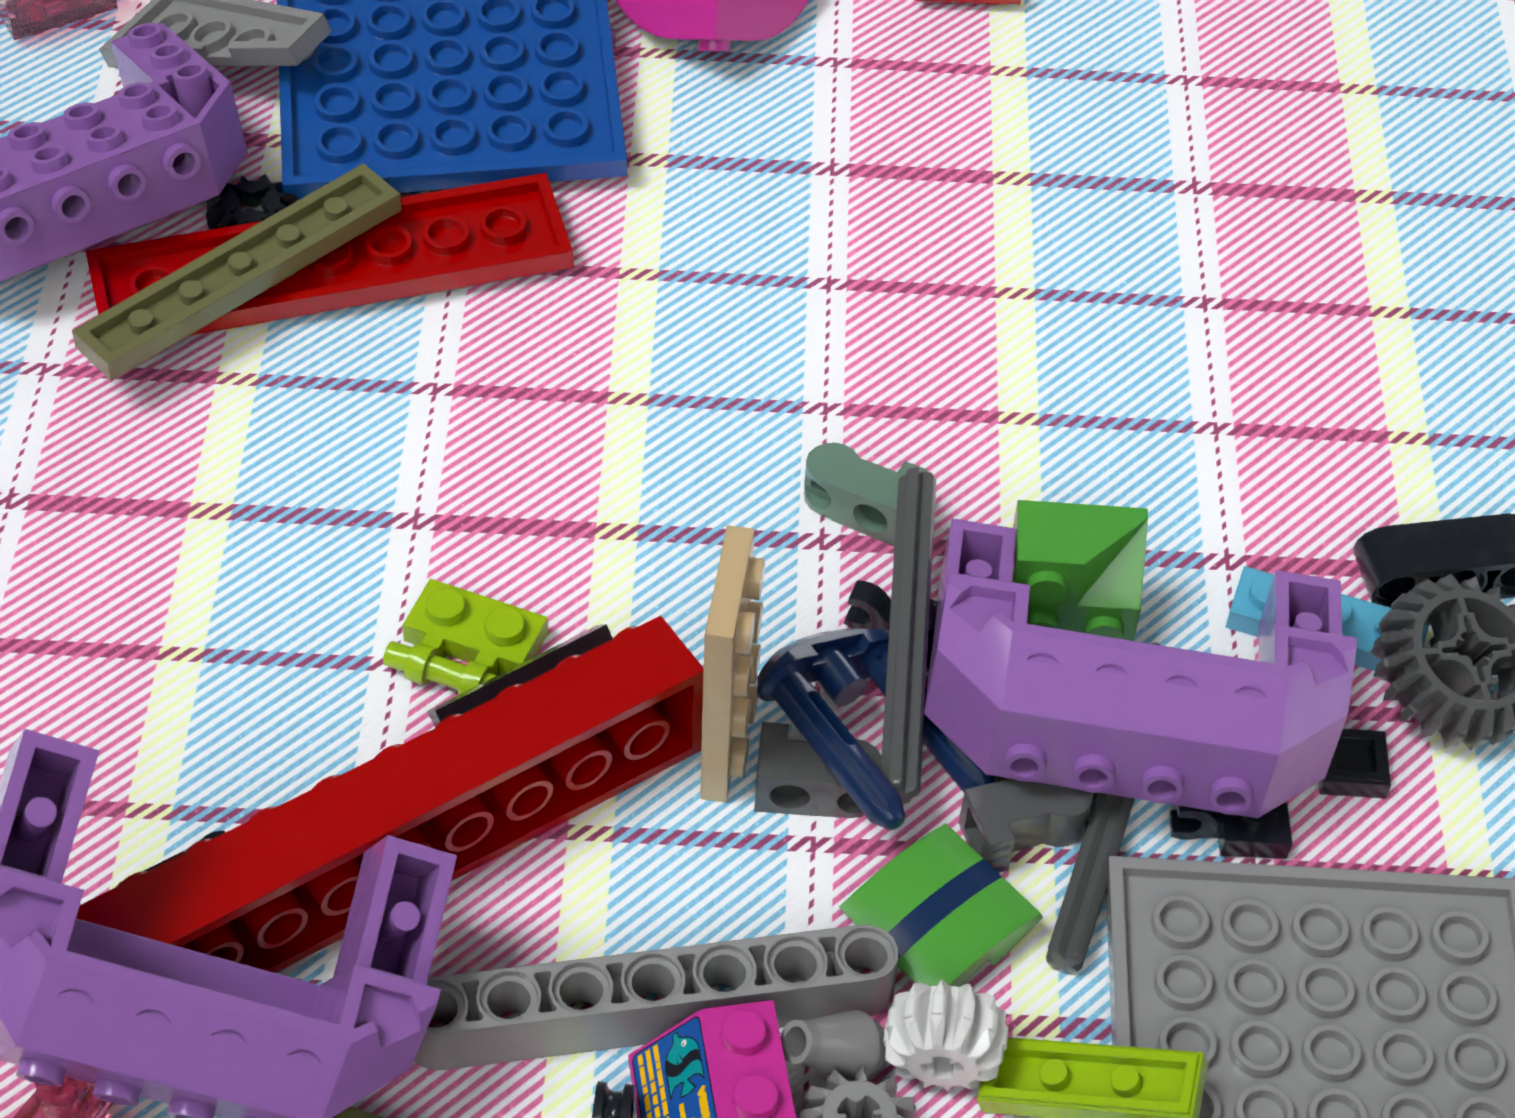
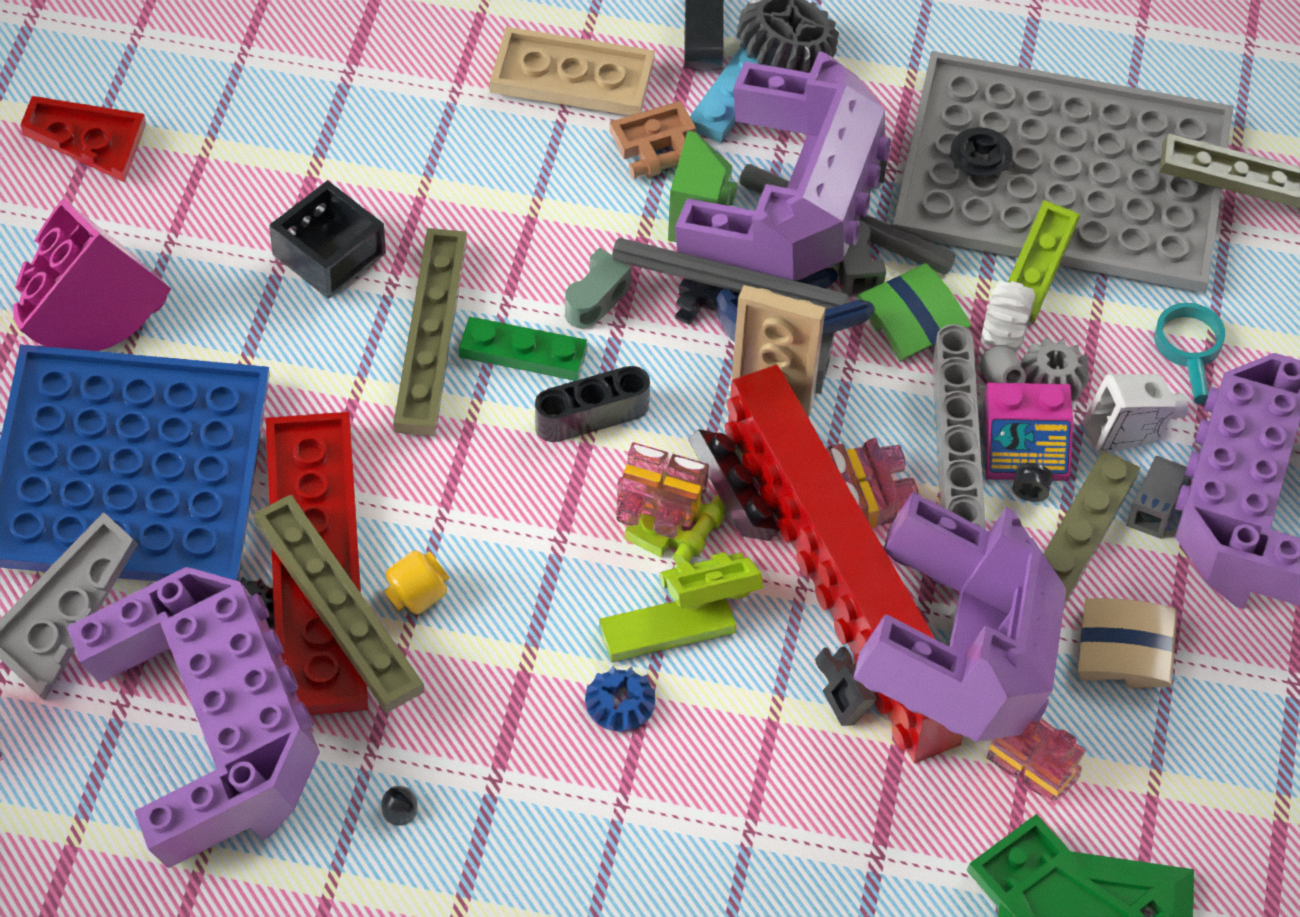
camera: 80 degrees left, 5 degrees up
(155, 629) = (630, 712): none -> blue gear
(274, 655) = (664, 628): none -> lime tile
(301, 358) = (416, 582): none -> yellow head
(338, 678) = (711, 580): none -> lime plate
(481, 588) = (660, 489): none -> clear pink hips
(562, 872) = (869, 478): none -> clear pink hips
(647, 510) = (574, 407): none -> black beam
(742, 321) = (430, 332): none -> olive plate
(742, 432) = (523, 348): none -> green plate
(850, 189) = (328, 243): none -> black piece
(1203, 526) = (651, 131): none -> nougat plate
(1284, 418) = (572, 71): none -> tan plate
(1299, 937) = (985, 142): none -> black gear

